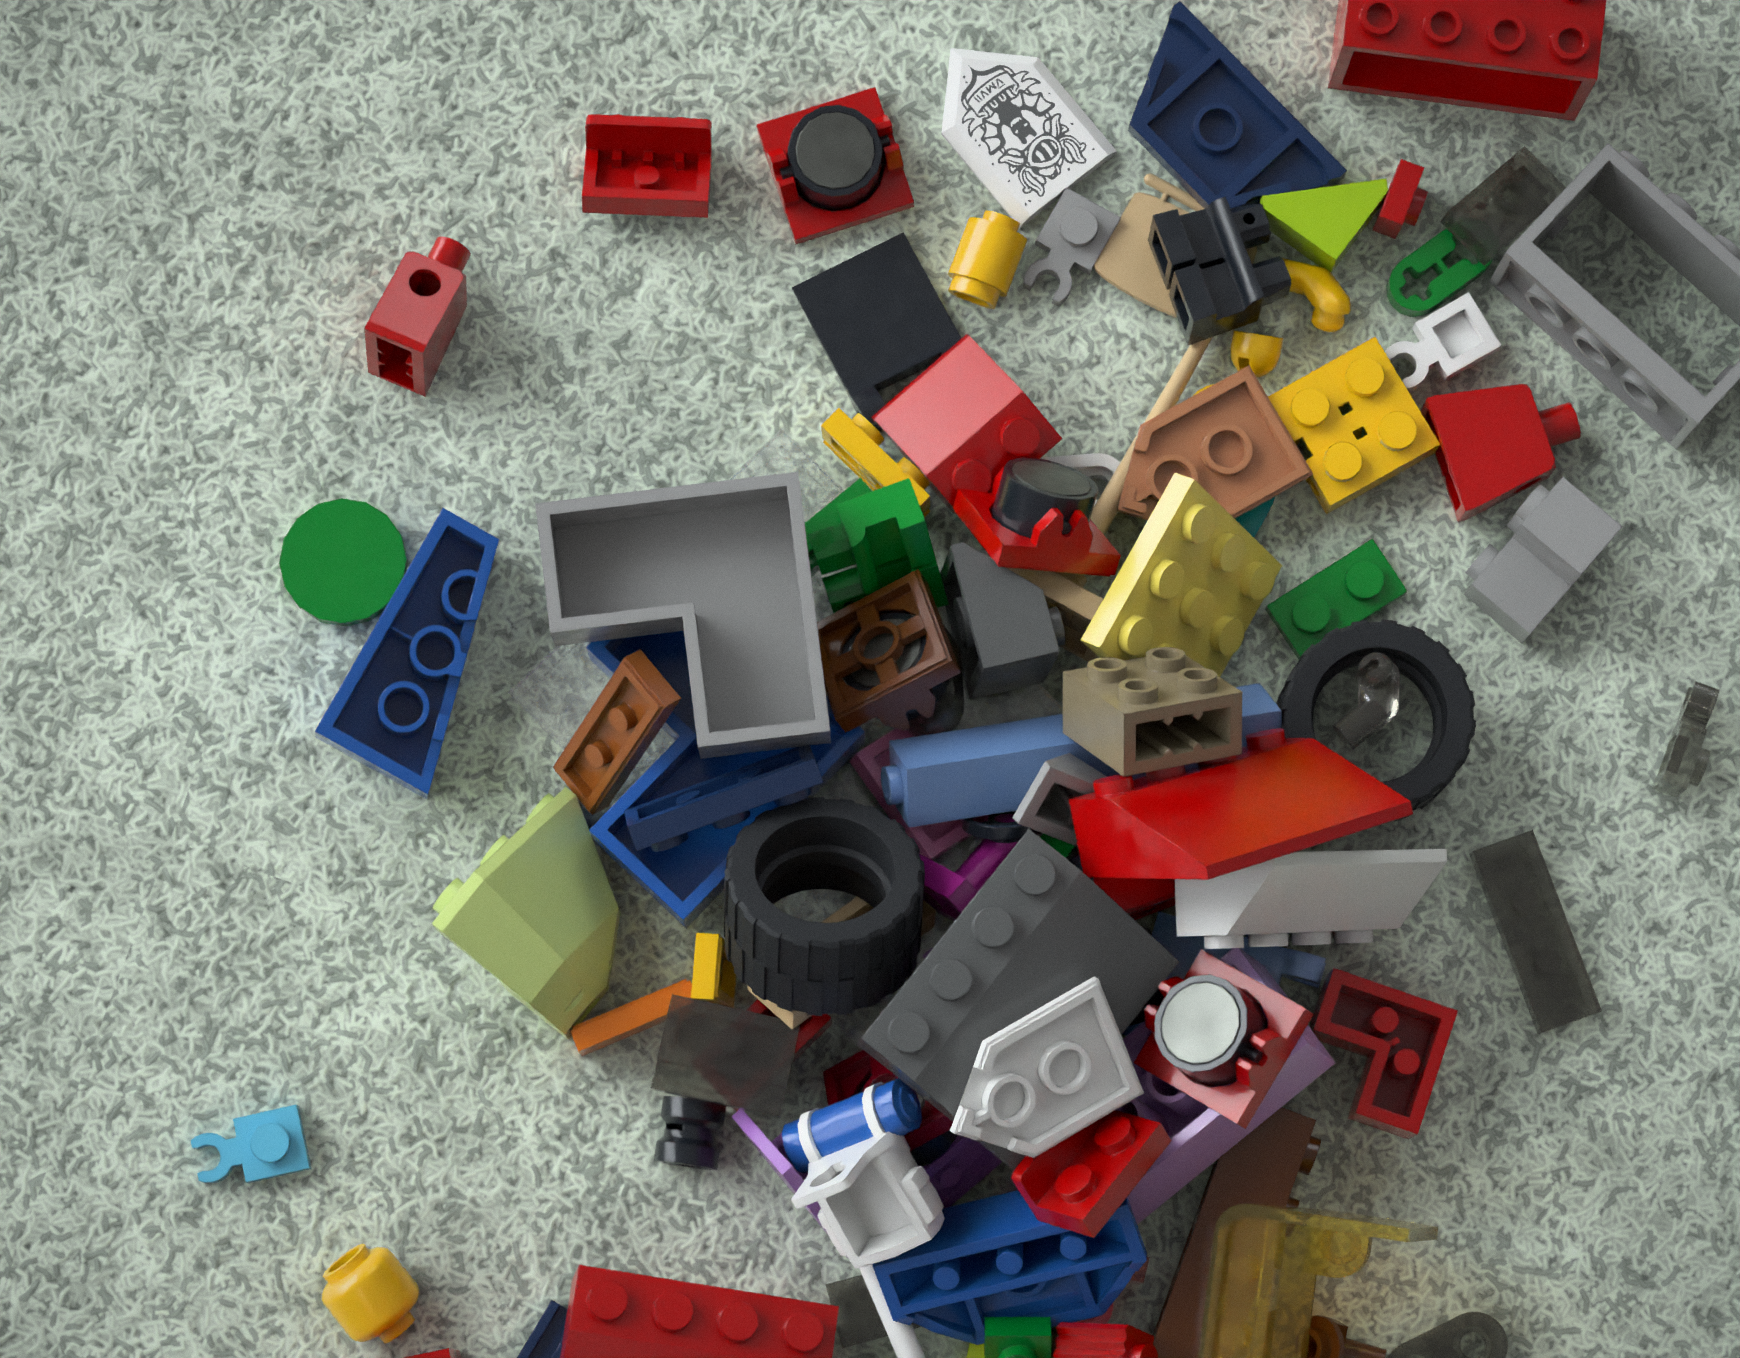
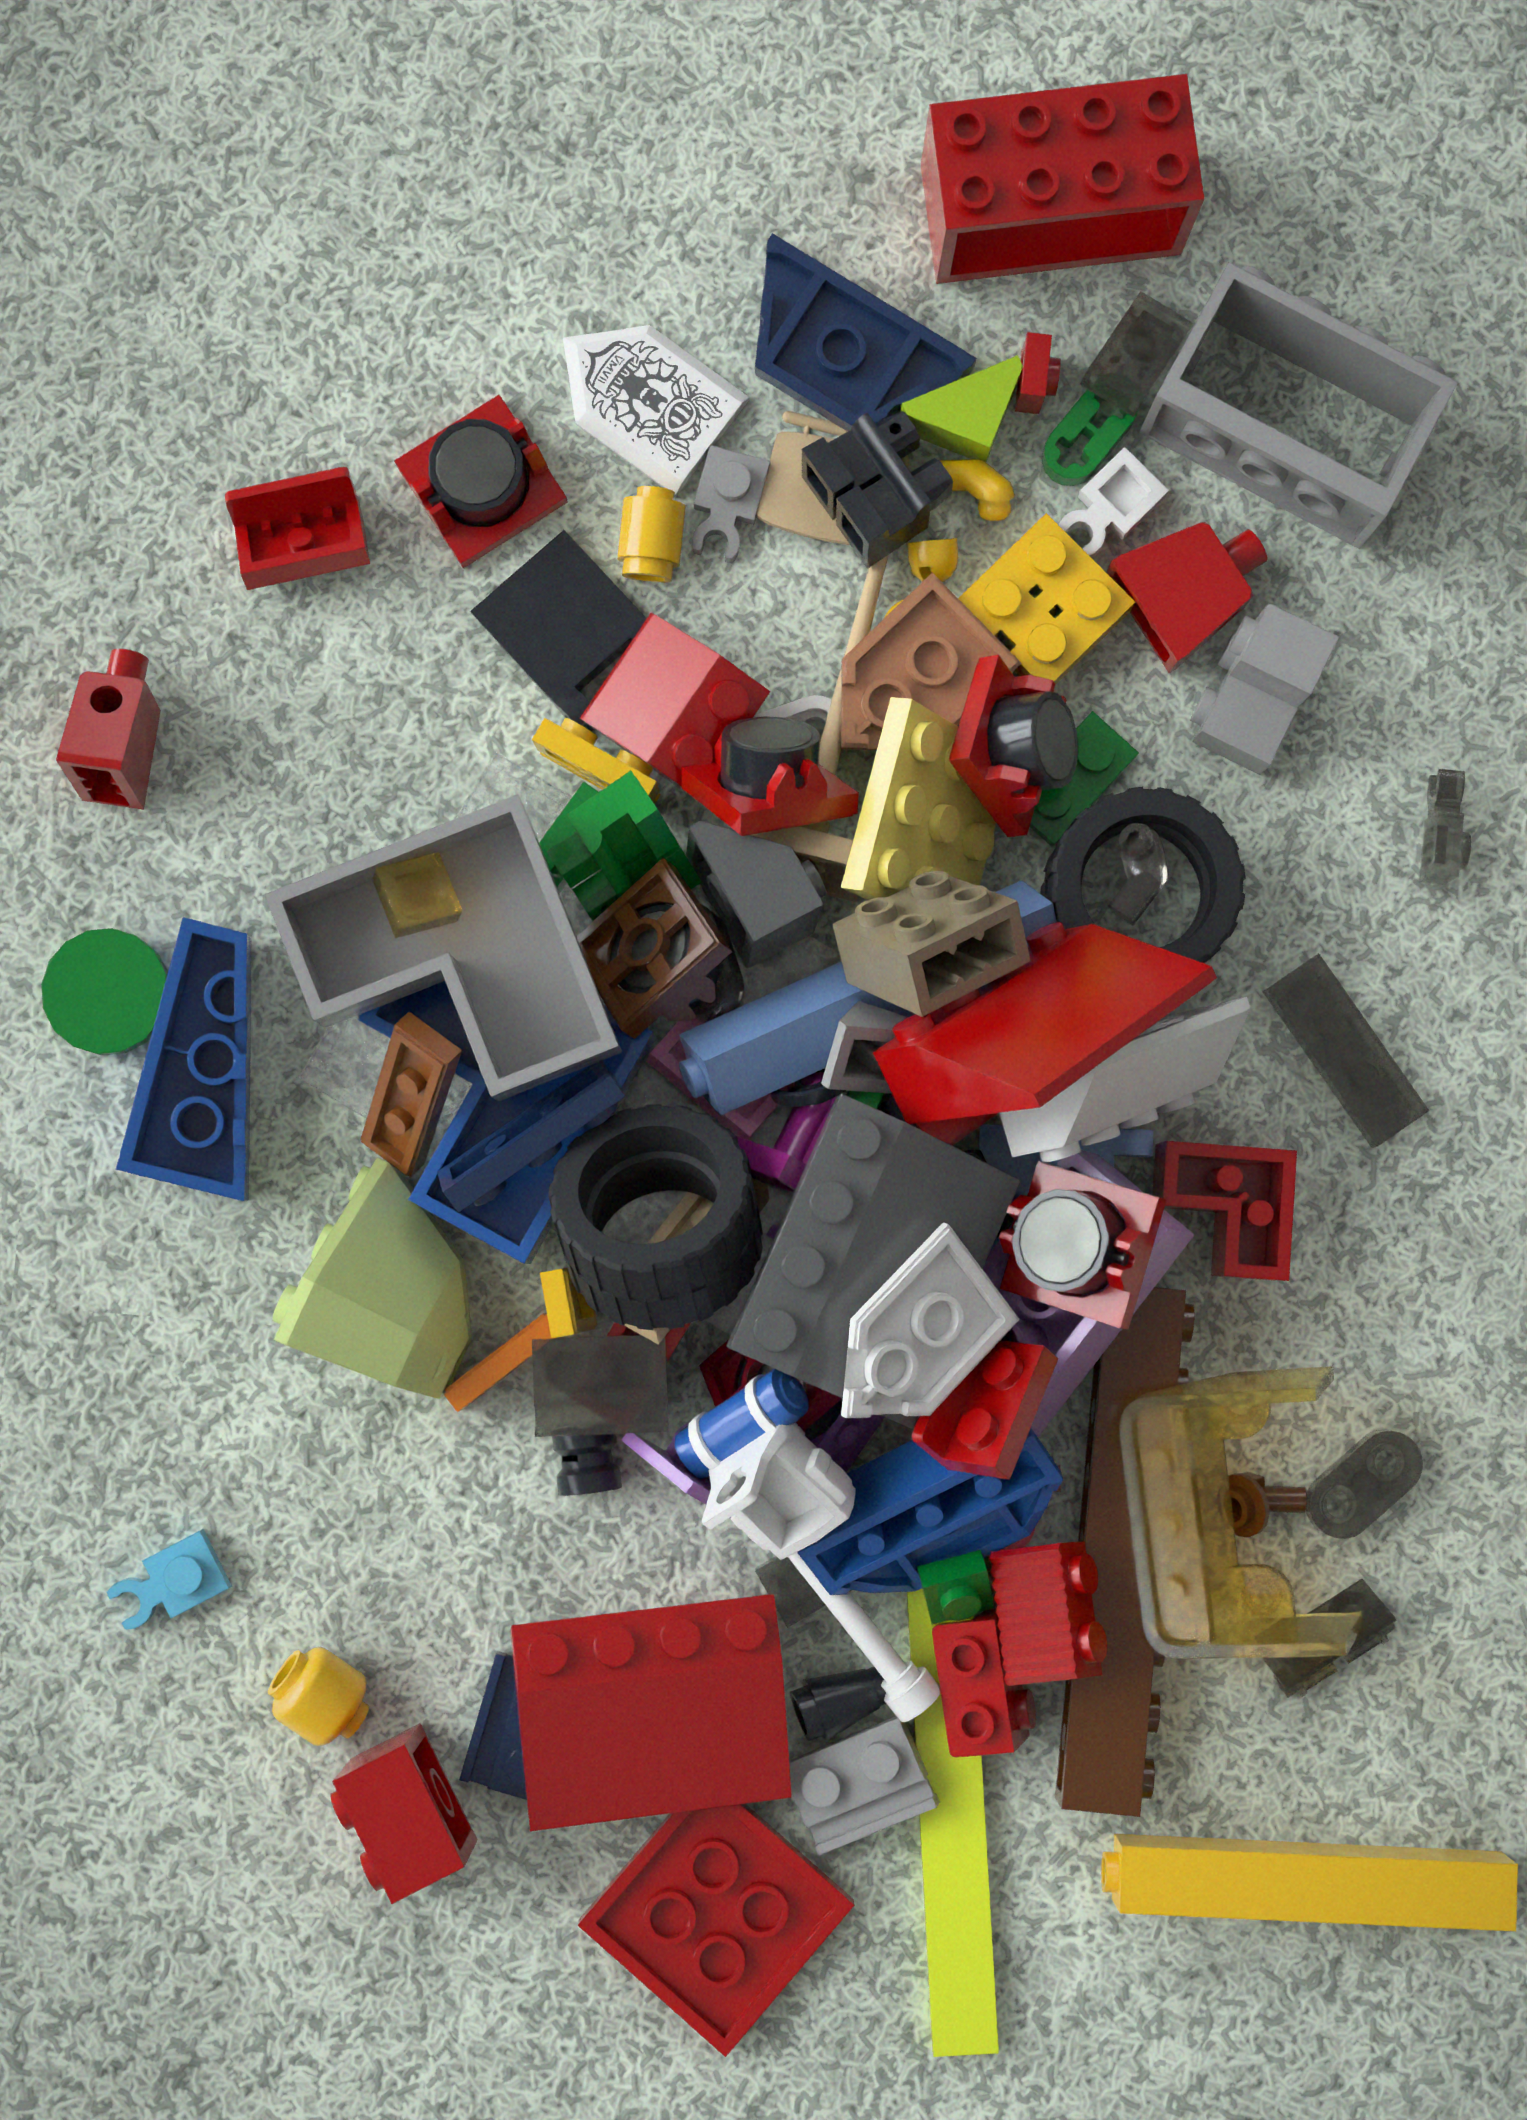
camera: 15 degrees left, 5 degrees up
(676, 542) = (417, 895): none -> clear yellow plate
(1284, 548) = (1013, 743): none -> piece

